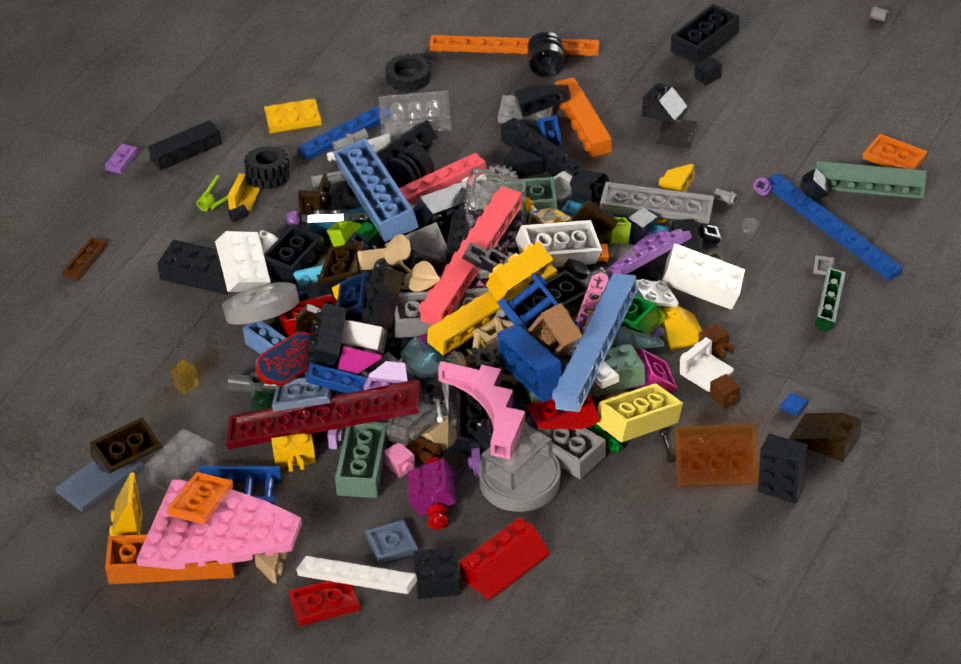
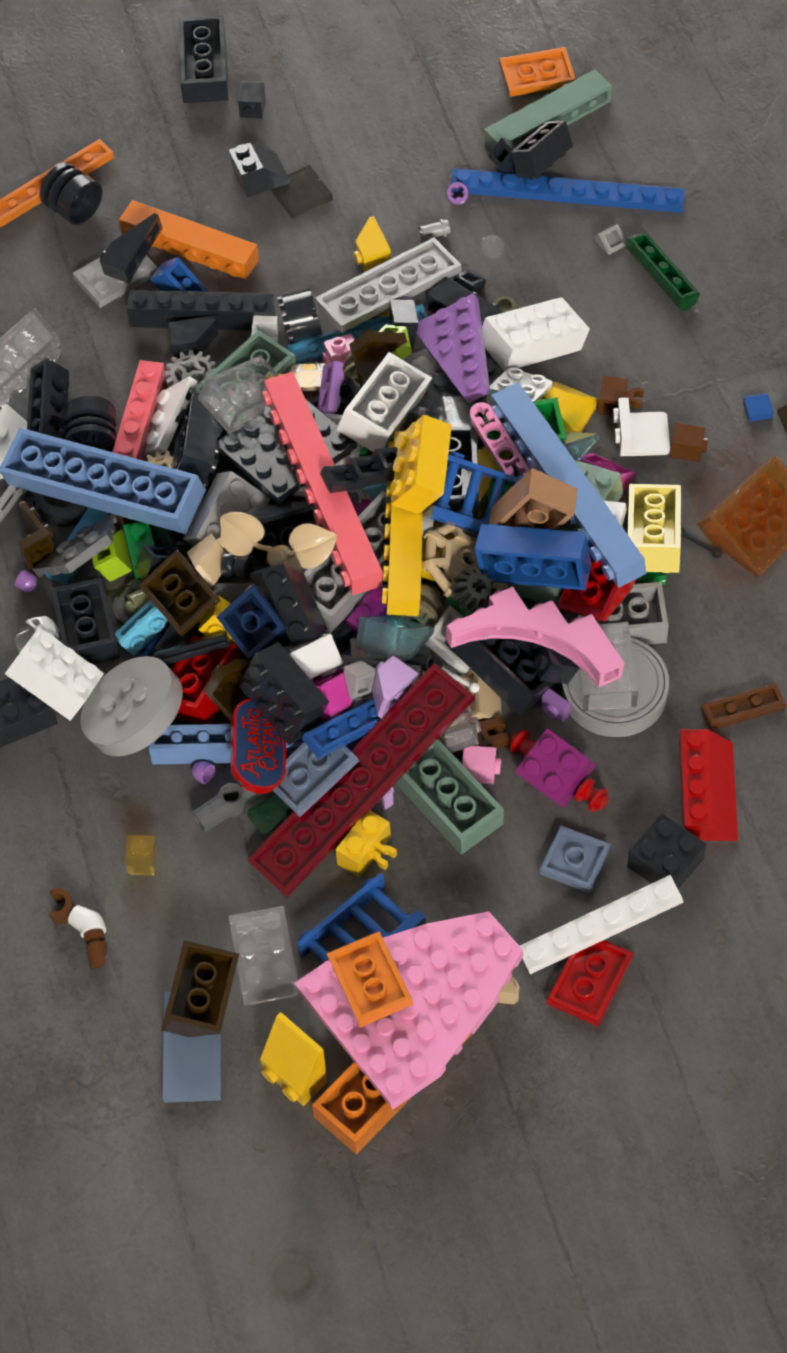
camera: 45 degrees left, 15 degrees up
(122, 386) = (86, 921): none -> reddish brown piece
(316, 295) = (193, 649): none -> black axle
(373, 360) = (359, 679): none -> light grey slope
(550, 217) = (330, 387): none -> medium lavender plate
(580, 540) = (743, 706): none -> reddish brown tile
(836, 191) = (541, 149): none -> black brick

